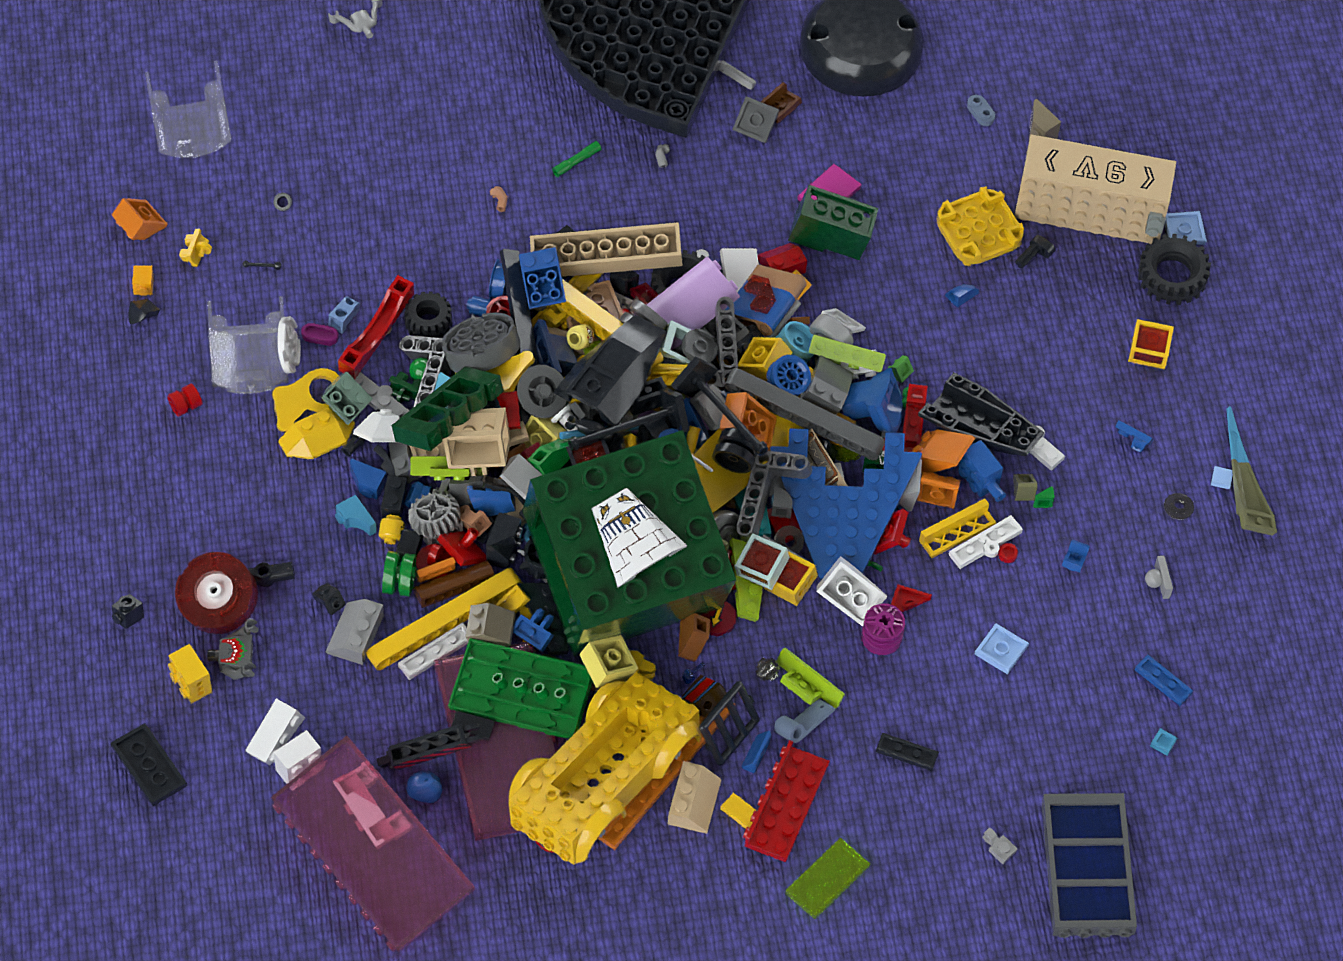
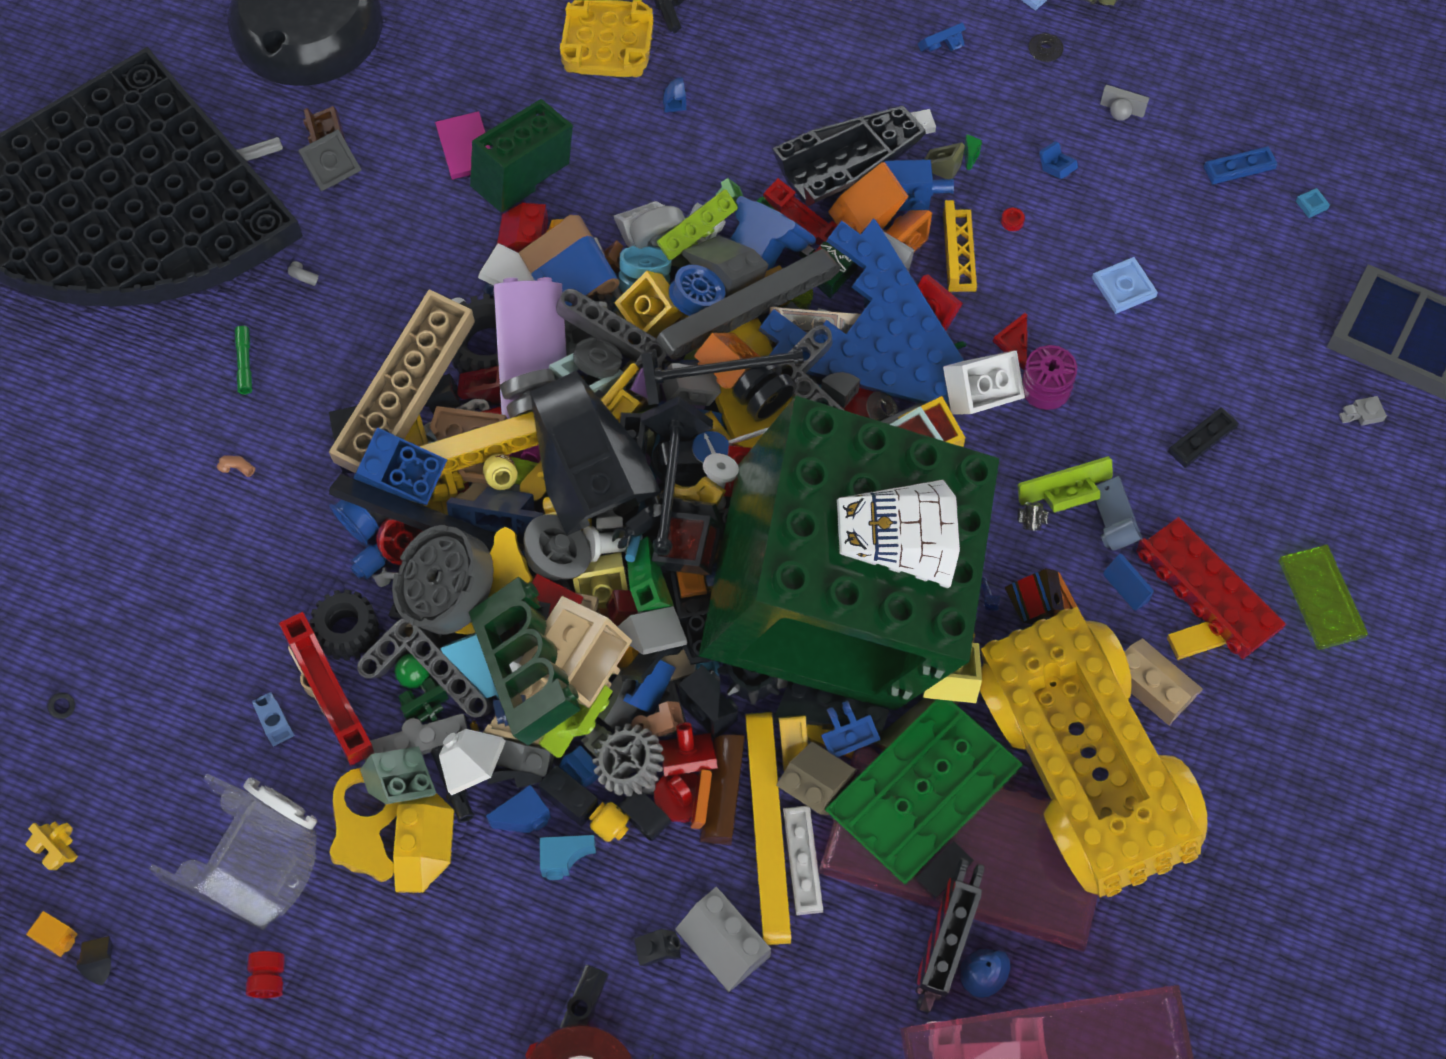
camera: 55 degrees left, 5 degrees up
(277, 265) = (145, 761): black hinge -> none
(319, 334) = (278, 761): magenta tile -> none
(400, 575) = (683, 844): green wheel -> none
(715, 716) = (1091, 588): black bar -> none
(762, 288) = (558, 260): clear red tile -> none
(986, 542) = (991, 231): white hinge -> none

